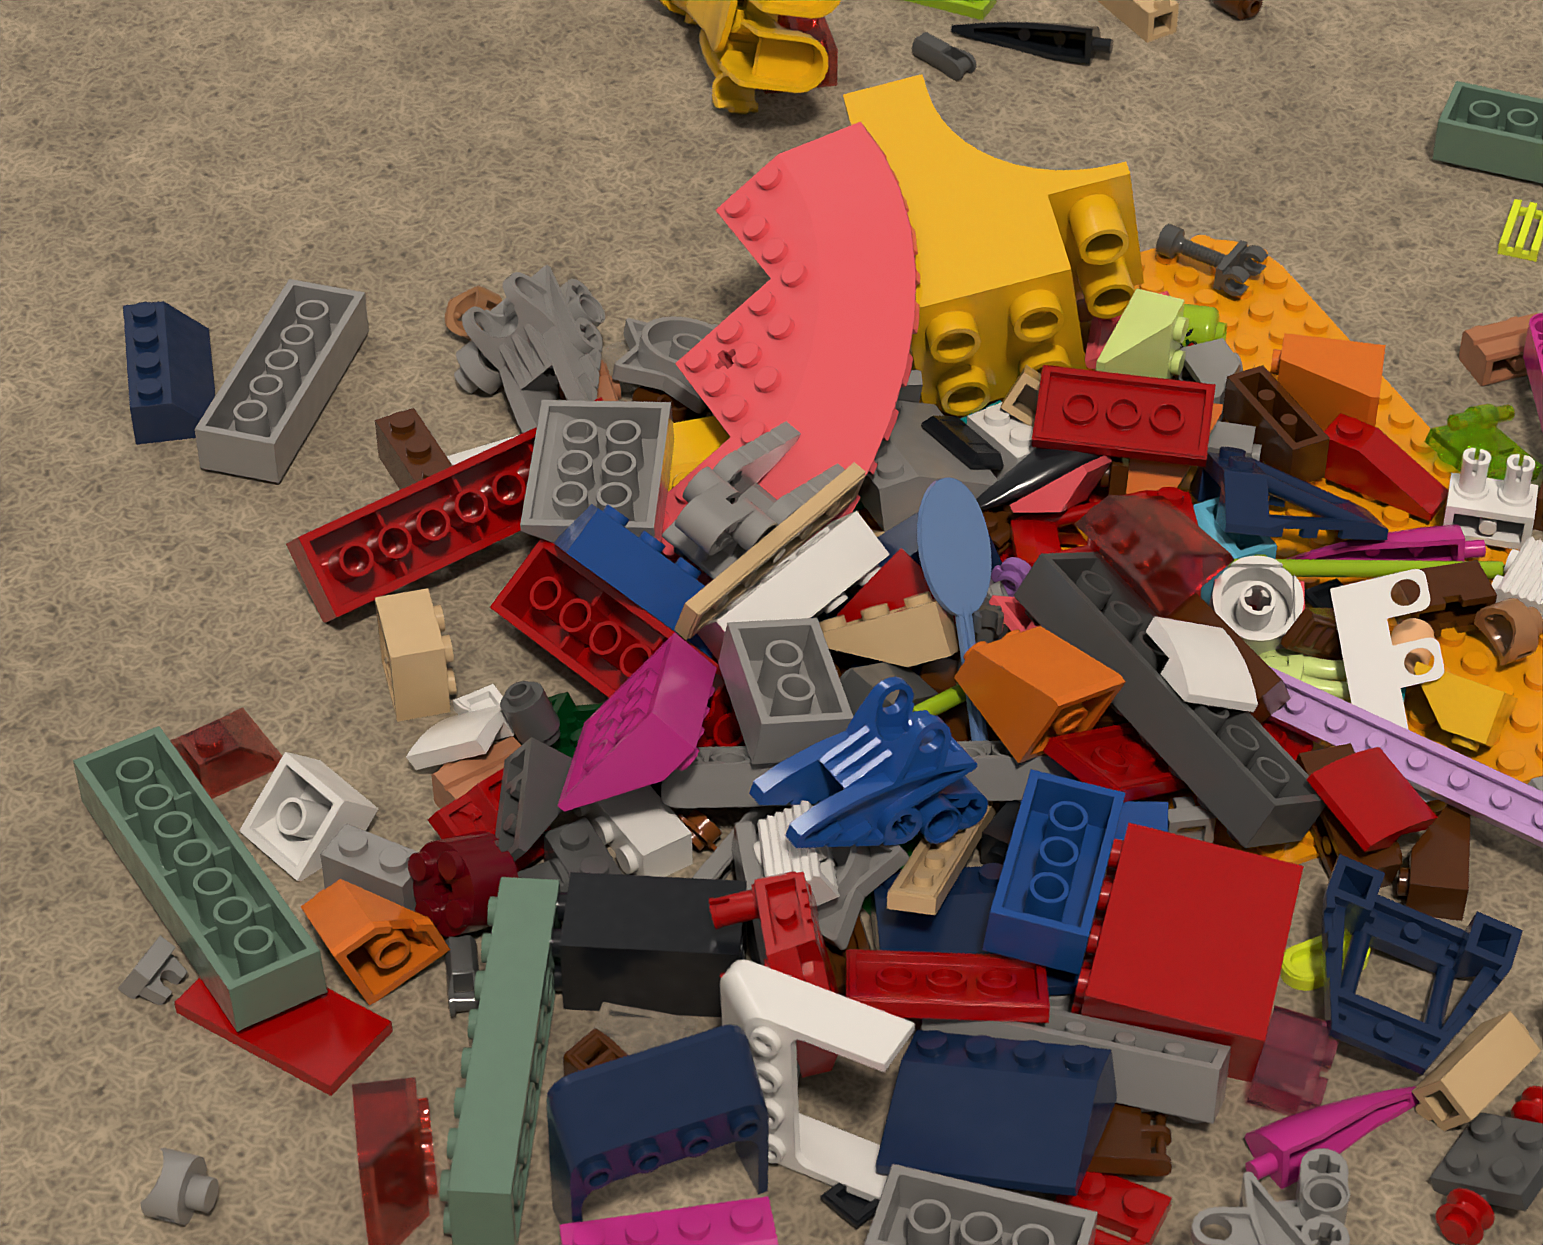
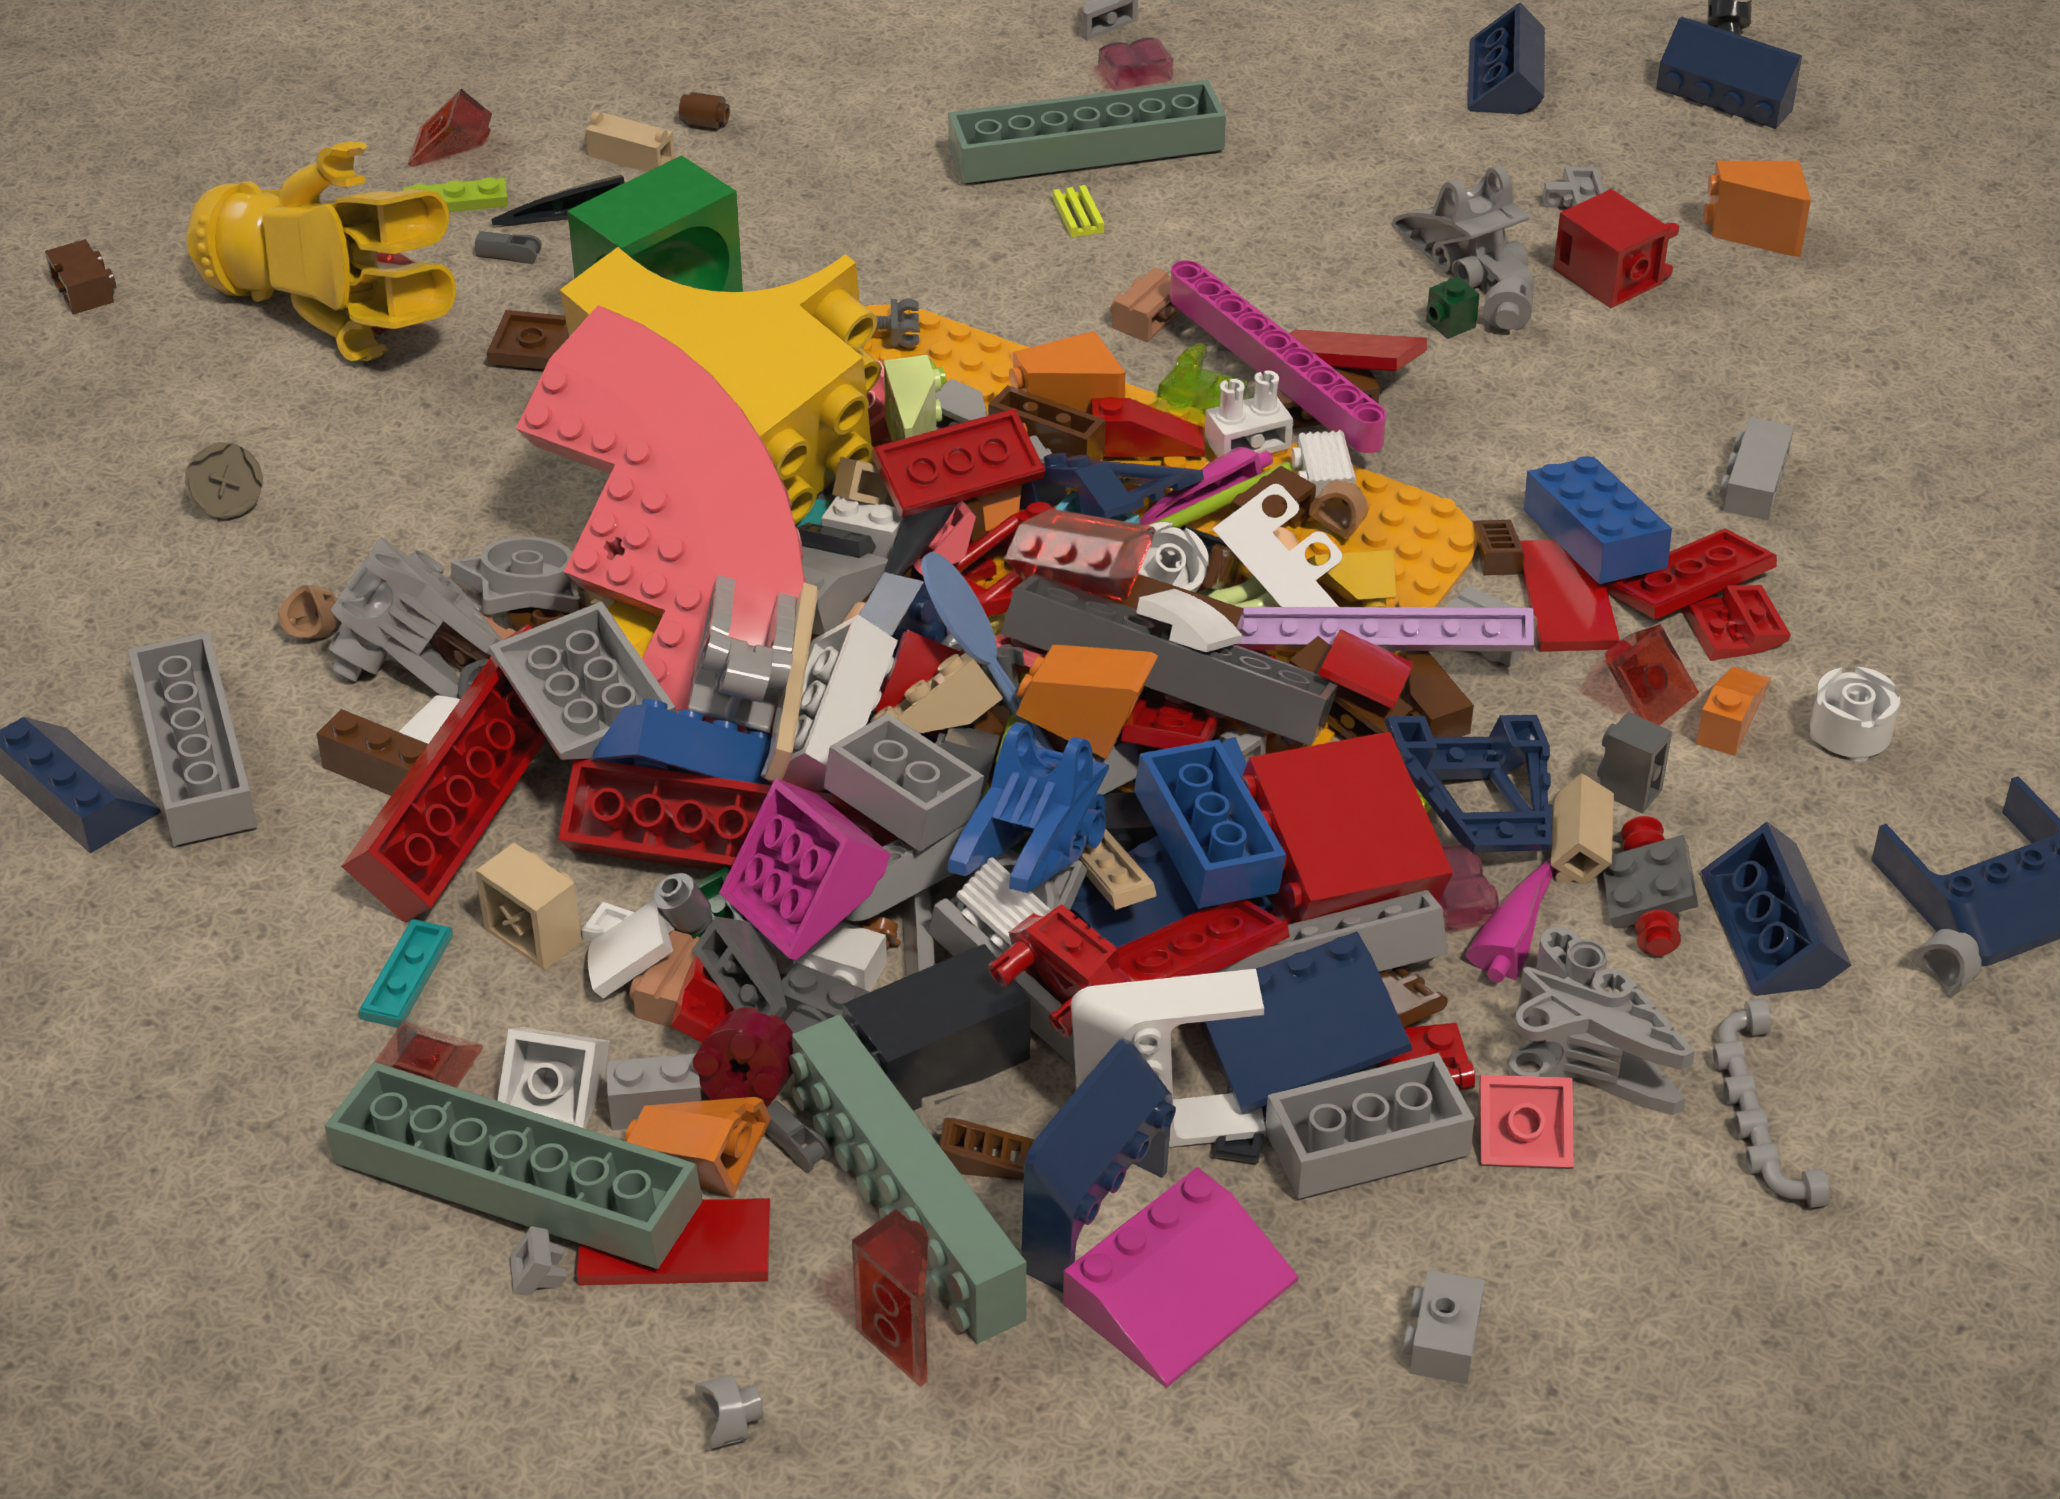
camera: 35 degrees left, 0 degrees up
(281, 667) = (405, 973): none -> teal tile
(505, 166) = (223, 480): none -> dark tan tile
(1038, 93) = (667, 221): none -> green piece

